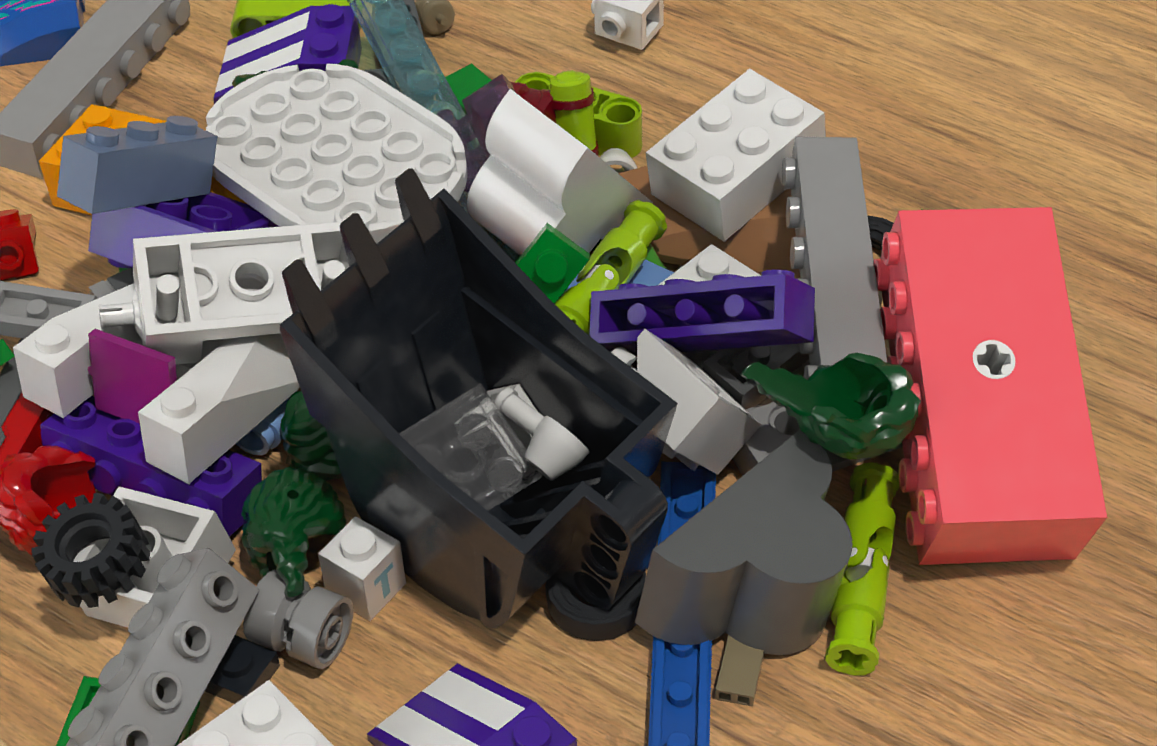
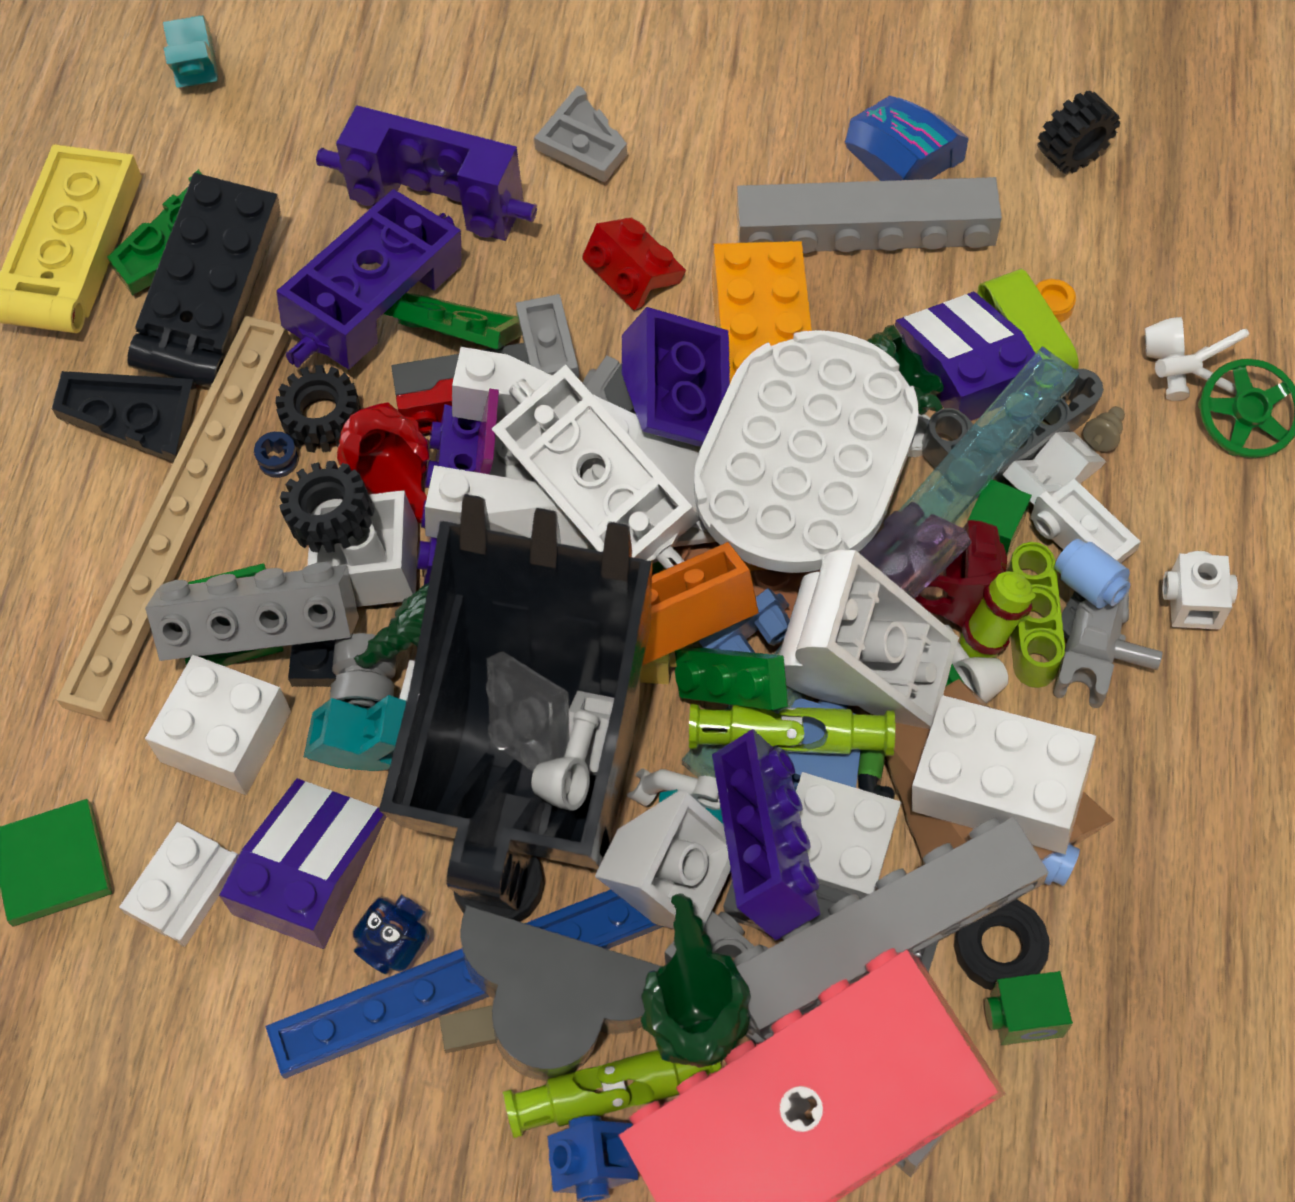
camera: 65 degrees right, 15 degrees up
(136, 164) = (682, 319): sand blue brick -> none
(369, 646) = (355, 736): none -> teal brick
(450, 47) = (1056, 464): none -> white slope
(521, 54) = (1077, 515): none -> white bracket
(579, 46) = (1093, 573): none -> light blue brick
(606, 693) = (391, 933): none -> clear blue head
(609, 73) = (1092, 645): none -> light grey piece
(943, 580) = (590, 1158): none -> blue brick

